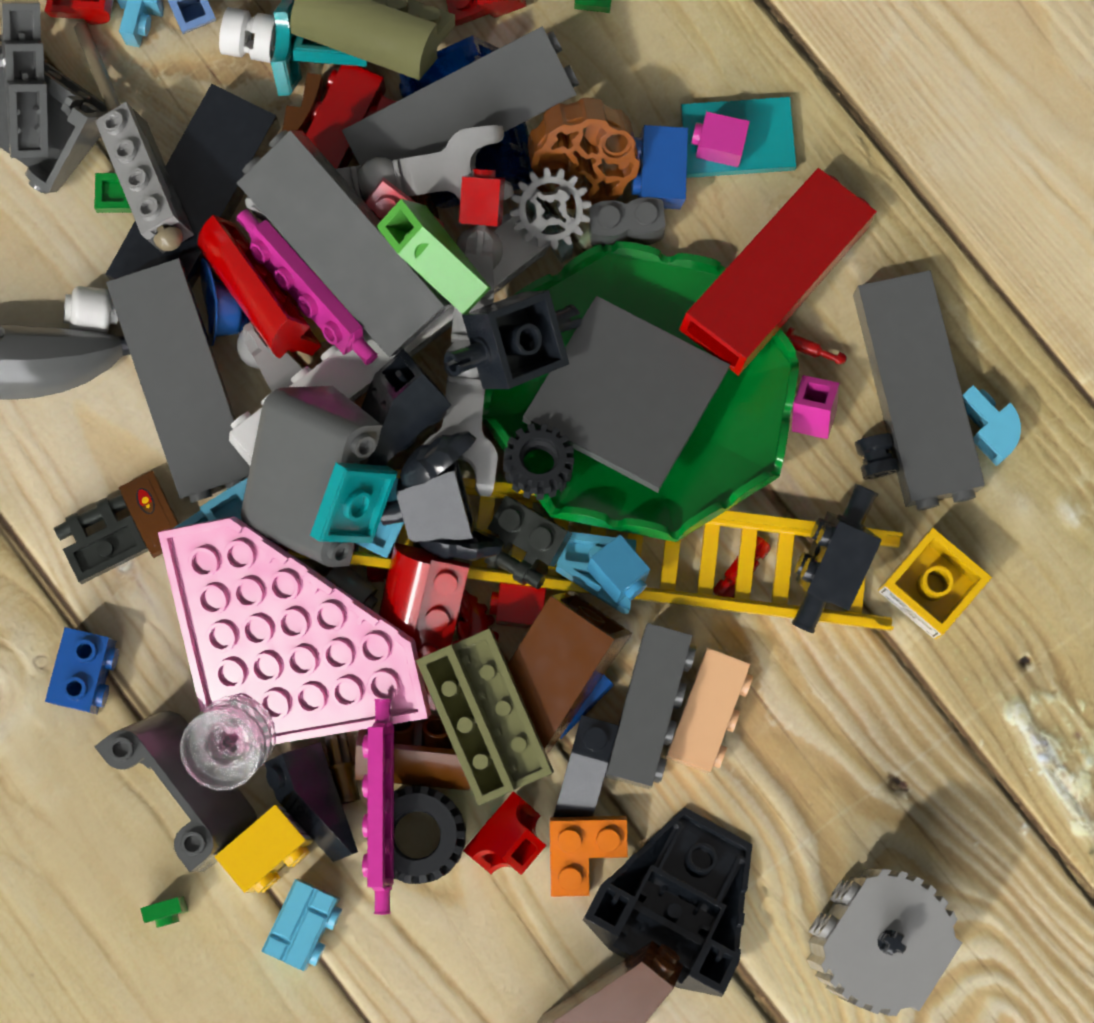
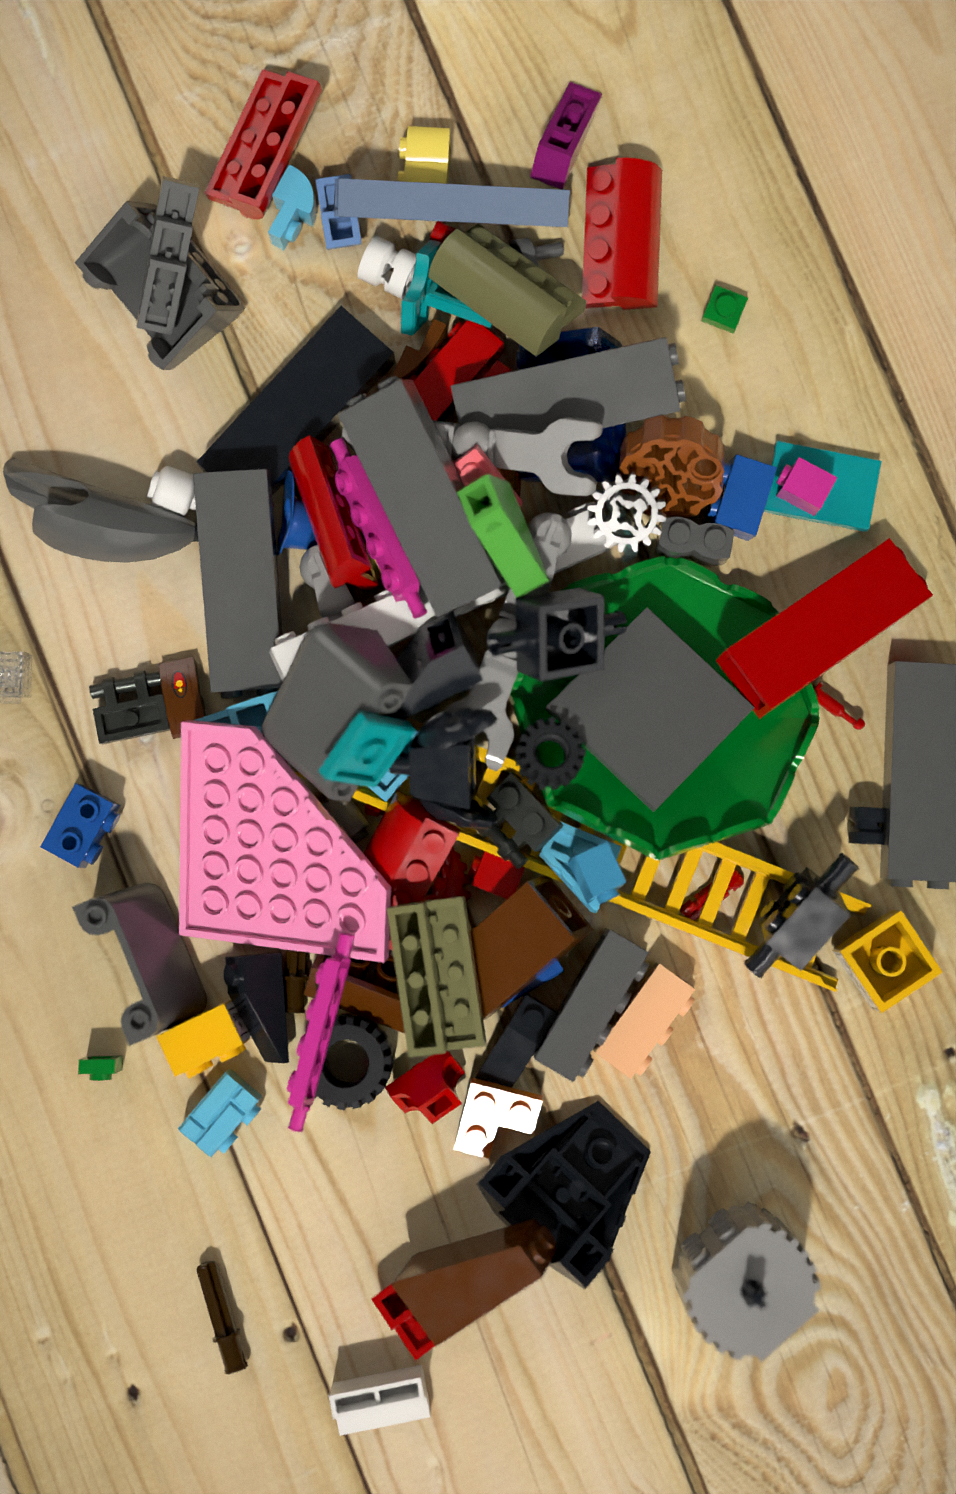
camera: 20 degrees right, 5 degrees up
(109, 194) = (225, 384): green plate -> none
(137, 160) = (252, 362): light grey piece -> none
(216, 759) = (182, 945): clear wheel -> none
(482, 198) = (564, 490): red brick -> none
(815, 407) = (822, 764): dark pink brick -> none

